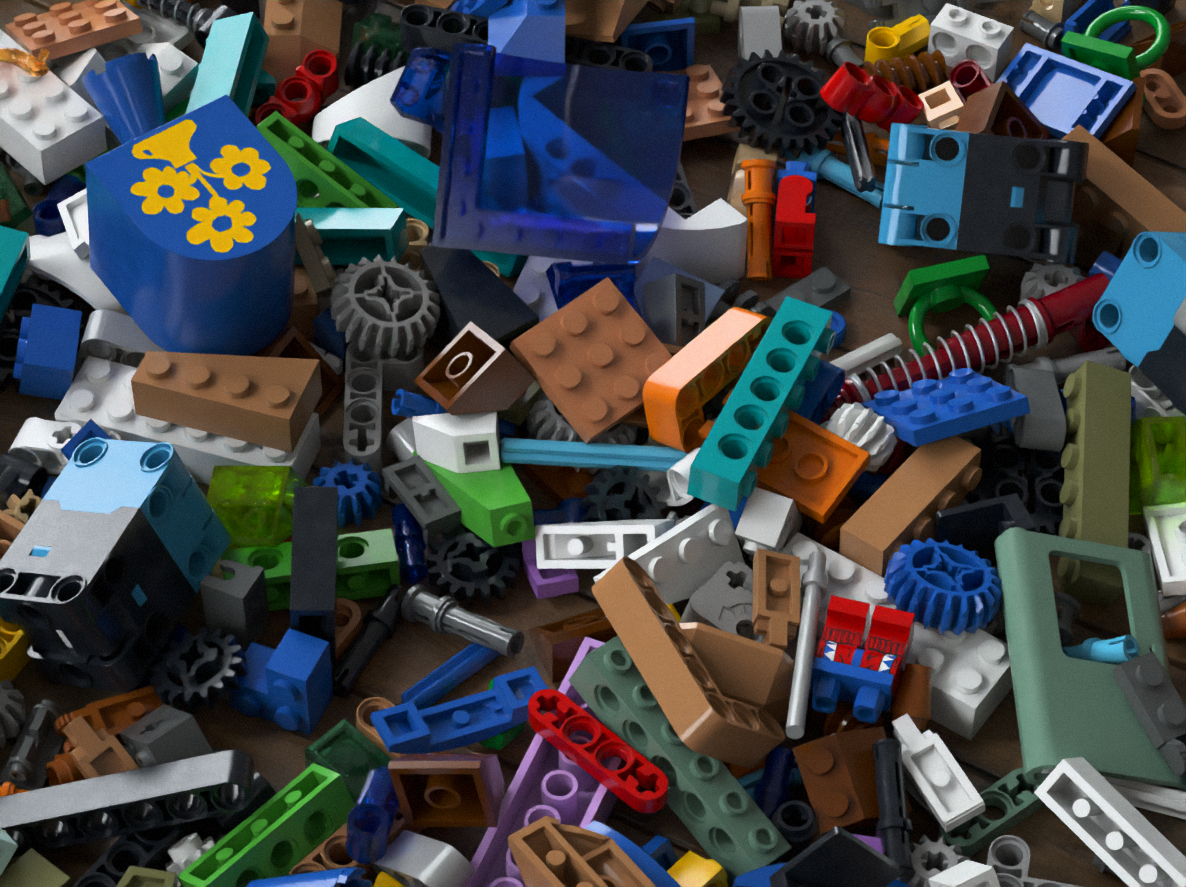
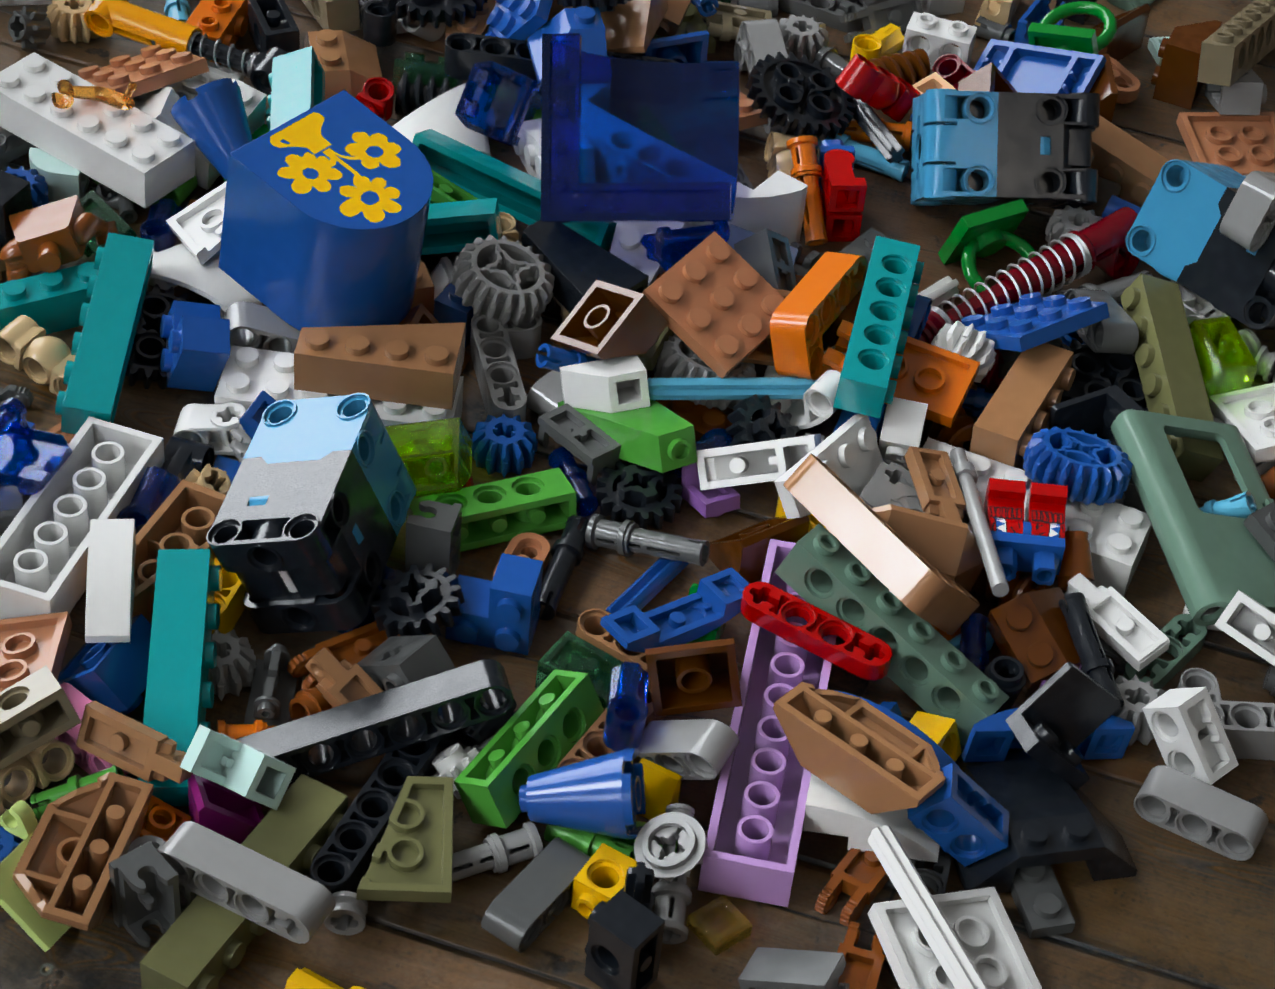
camera: 15 degrees left, 5 degrees down
(315, 564) = (508, 495): black slope -> none
(316, 264) = (437, 252): dark tan plate -> none

